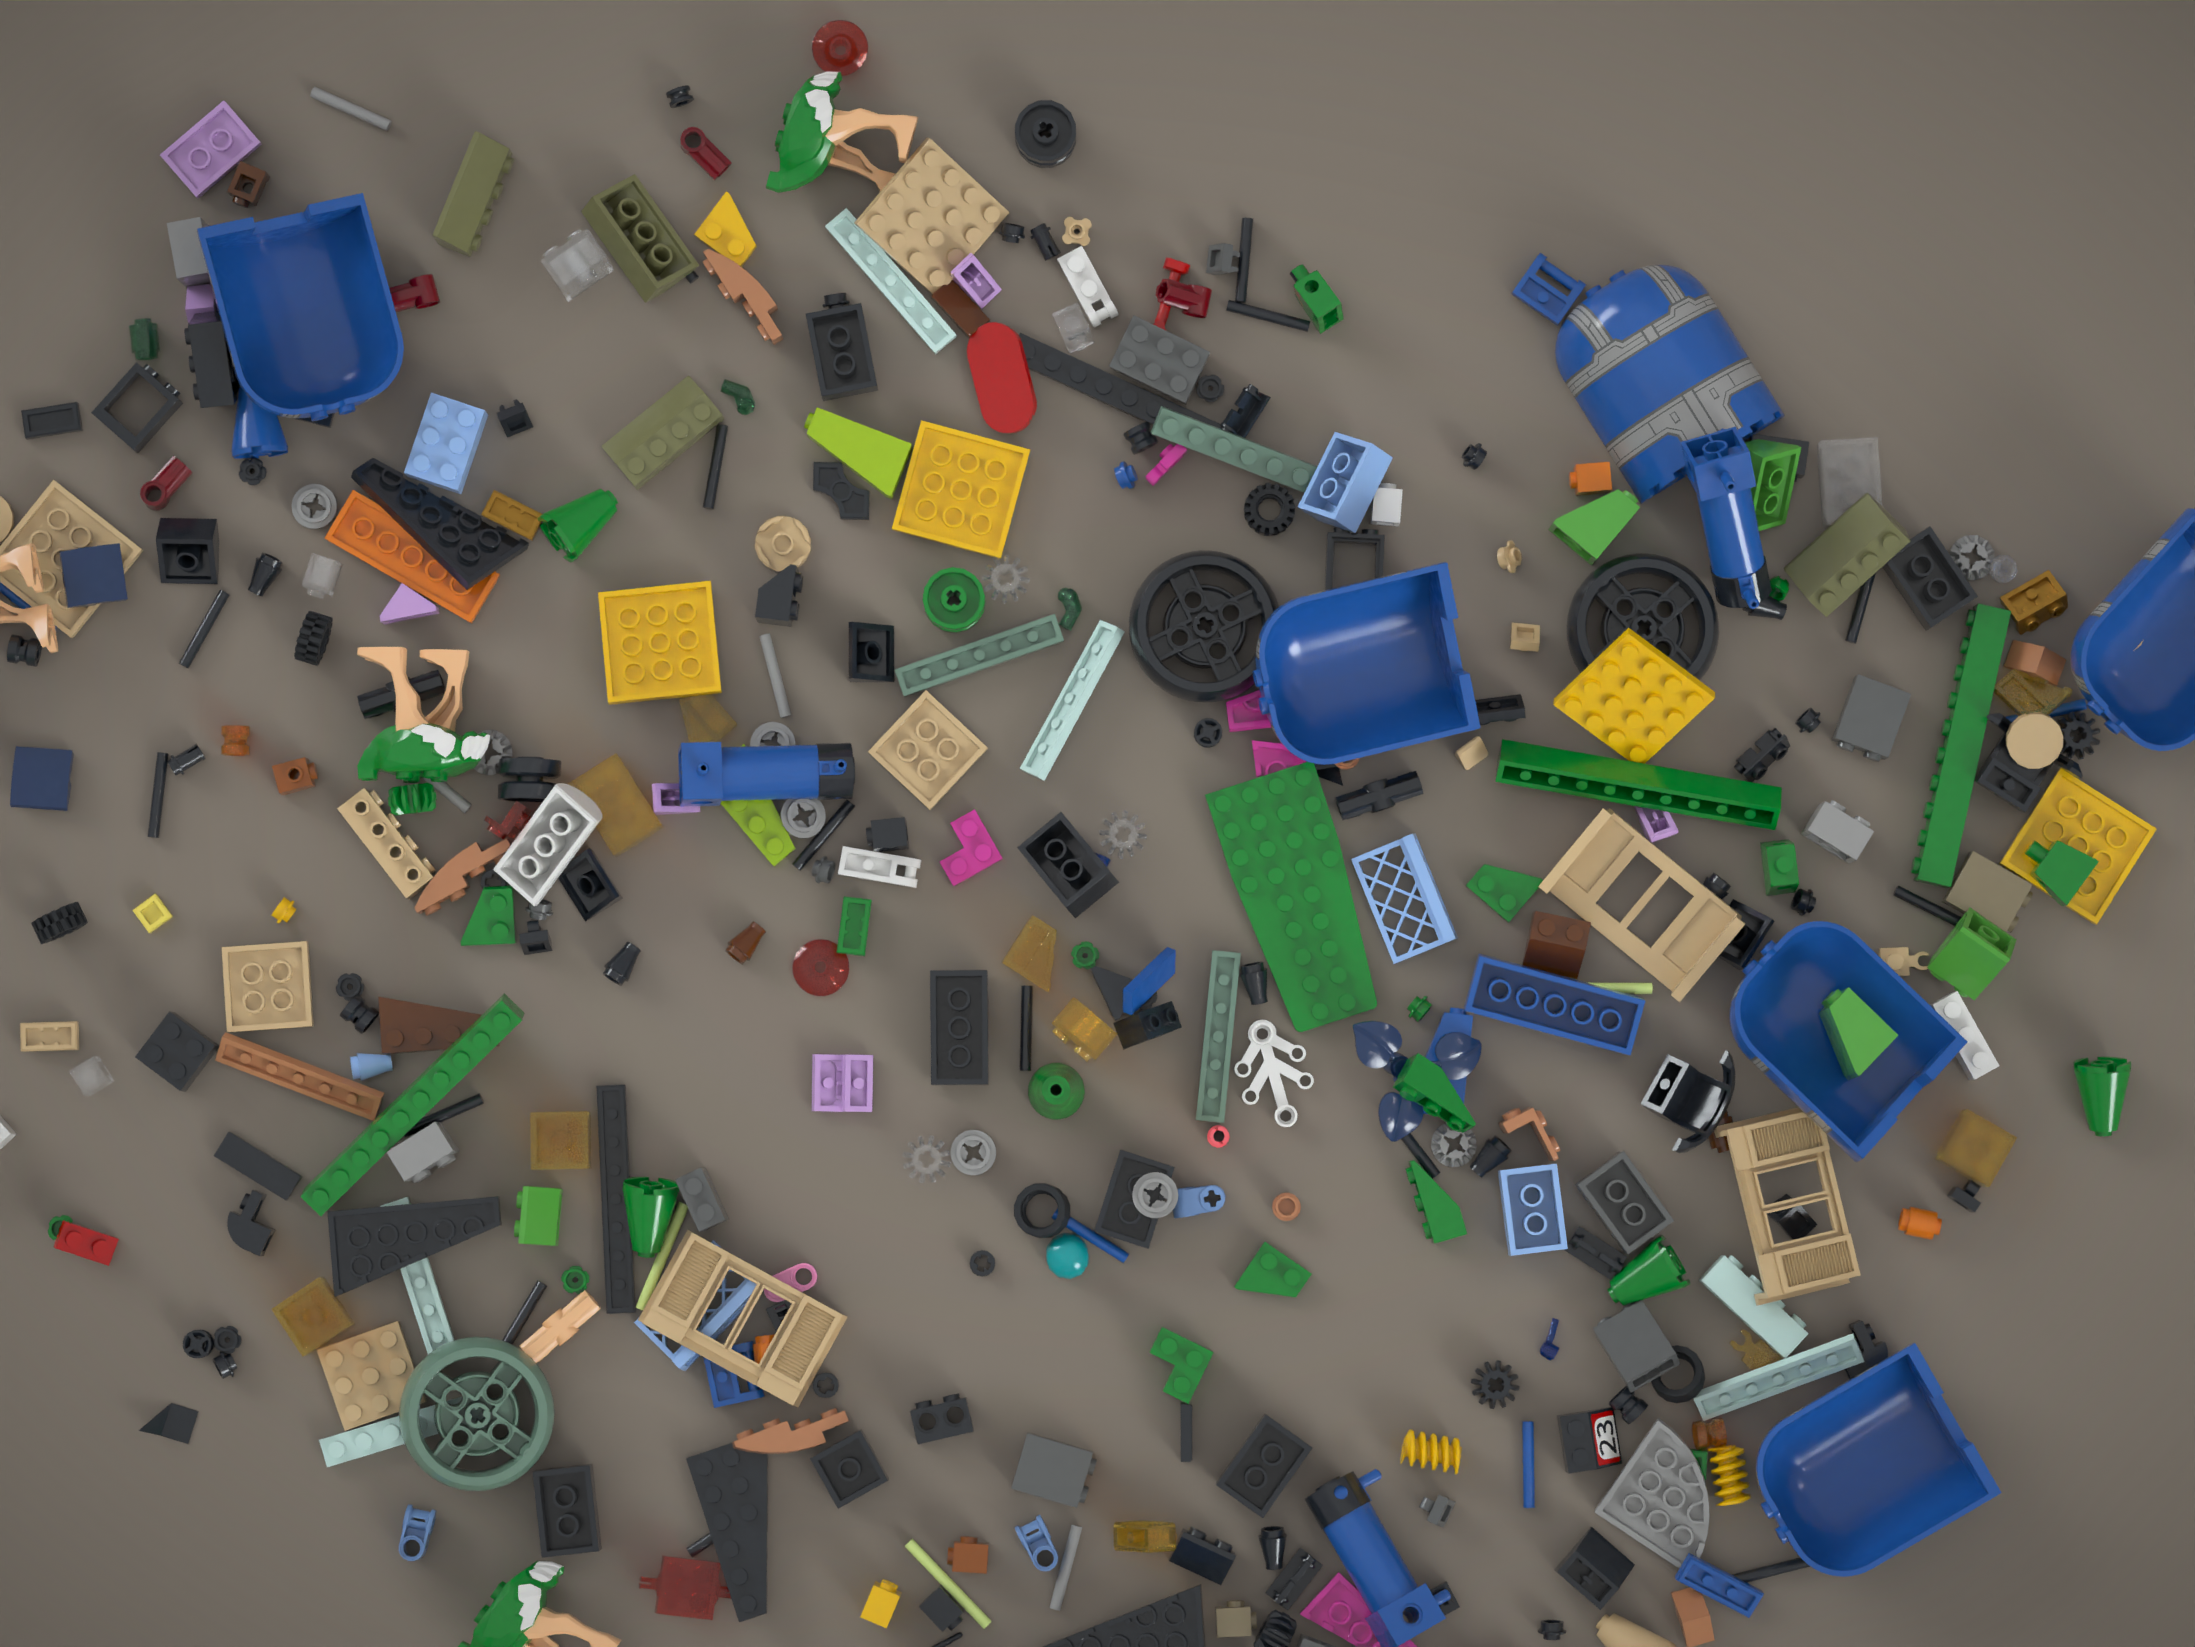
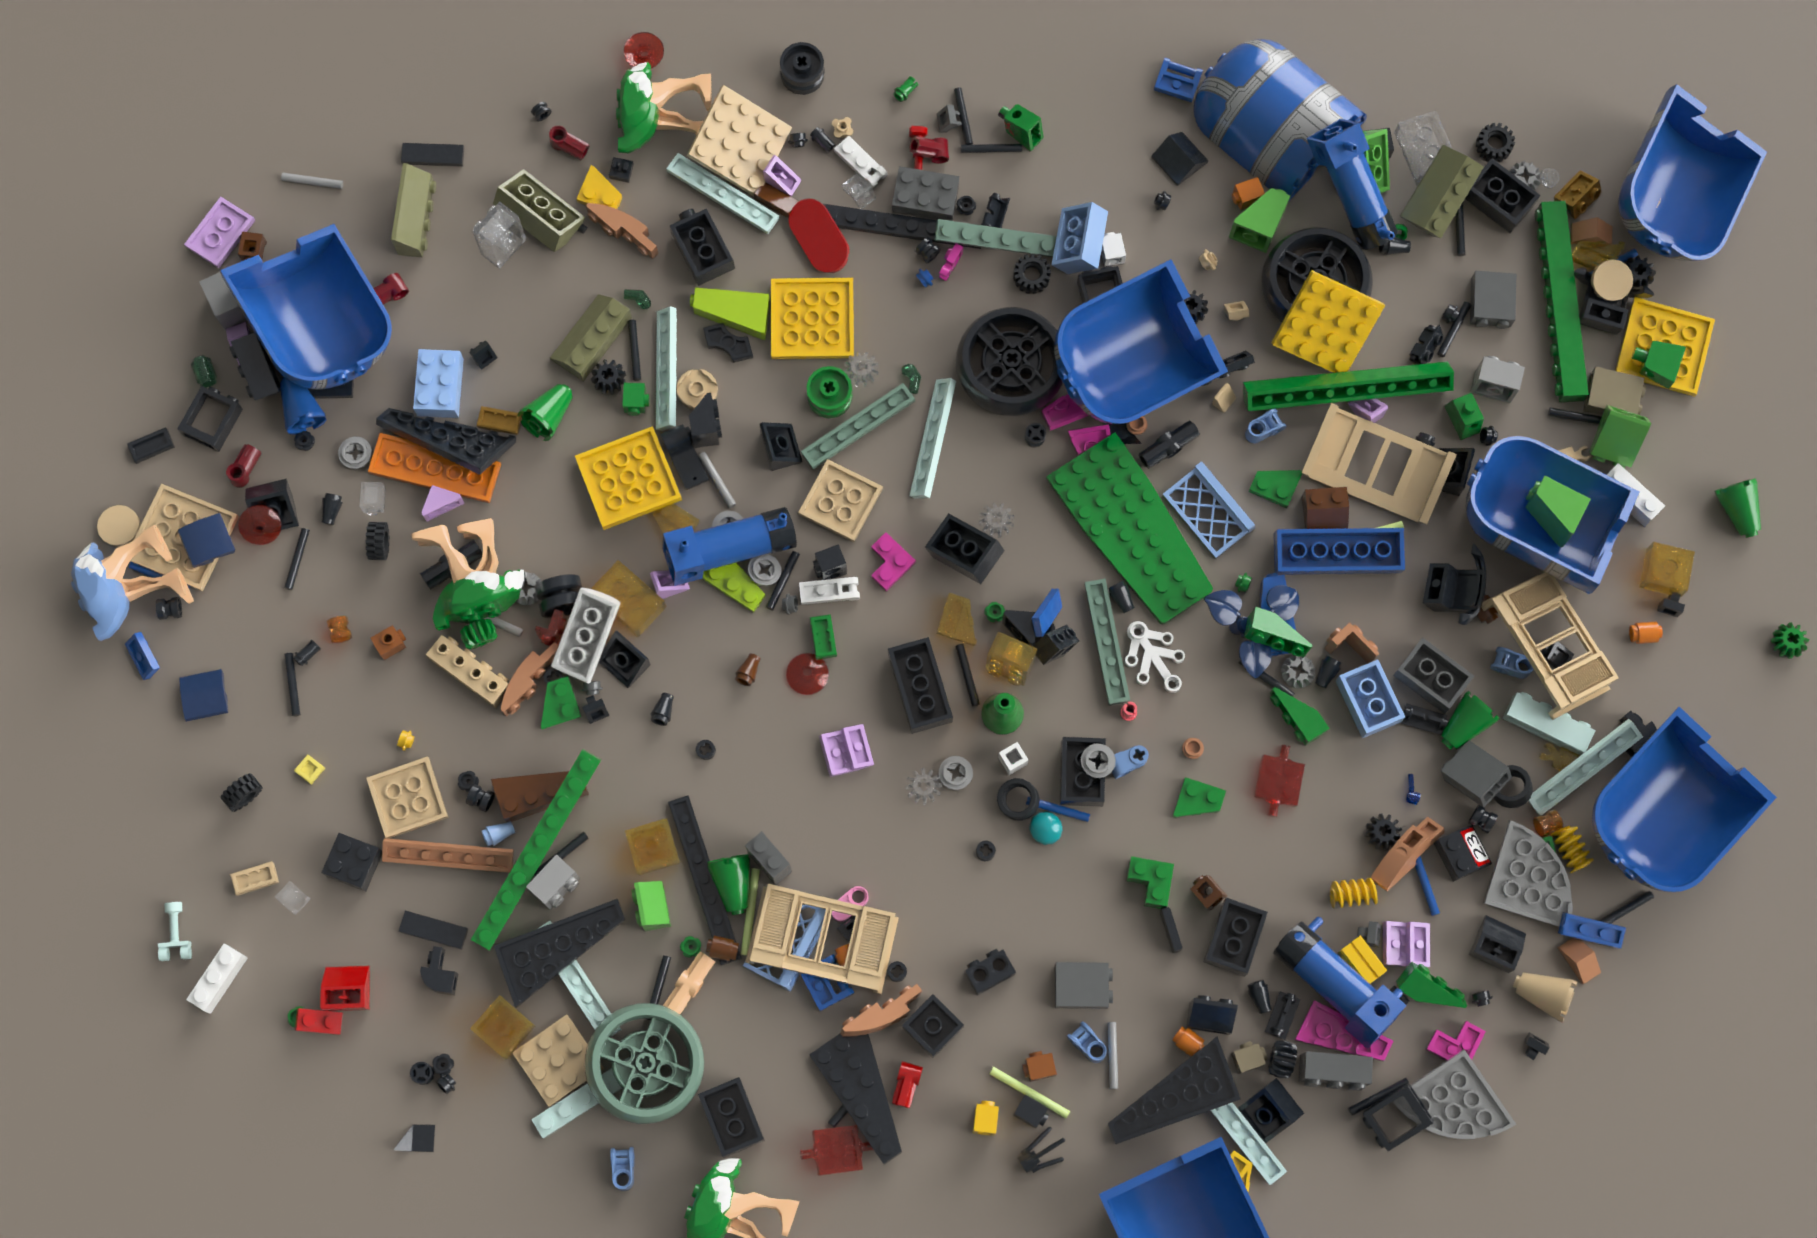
camera: 15 degrees left, 10 degrees down
(129, 1210) = (345, 988): none -> red slope
(170, 564) = (259, 516): none -> clear red dish
(519, 116) = (432, 154): none -> black tile
(613, 1296) = (722, 948): none -> reddish brown brick
(661, 1022) = (709, 755): none -> black bush
(670, 486) = (604, 371): none -> black gear
(697, 536) = (635, 398): none -> green brick
(741, 633) = (684, 456): none -> black door
(749, 506) = (666, 369): none -> light aqua plate
(765, 208) = (621, 169): none -> black tile
(799, 1526) = (907, 1079): none -> red piece
(1050, 1157) = (1013, 758): none -> white brick
(1144, 1536) = (1165, 1012): clear yellow brick -> none
(1165, 1578) = (1188, 1041): none -> orange brick
(1176, 200) = (905, 89): none -> green pin
(1242, 1406) = (1199, 889): none -> reddish brown brick
(1384, 1280) = (1279, 780): none -> clear red plate
(1414, 1540) = (1362, 960): none -> yellow brick
(1475, 614) = (1199, 306): none -> black gear
(1479, 1534) = (1406, 943): none -> lavender slope
(1485, 1598) = (1424, 987): none -> green slope
(1514, 806) = (1268, 425): none -> medium blue piece
(1514, 1419) = (1405, 851): none -> nougat slope
(1516, 400) = (1179, 157): none -> black slope
(1729, 1213) = (1510, 663): none -> medium blue piece
(1806, 743) = (1454, 329): none -> black bar
(1952, 482) = (1503, 135): none -> black tyre
(2100, 1296) = (1793, 648): none -> green gear

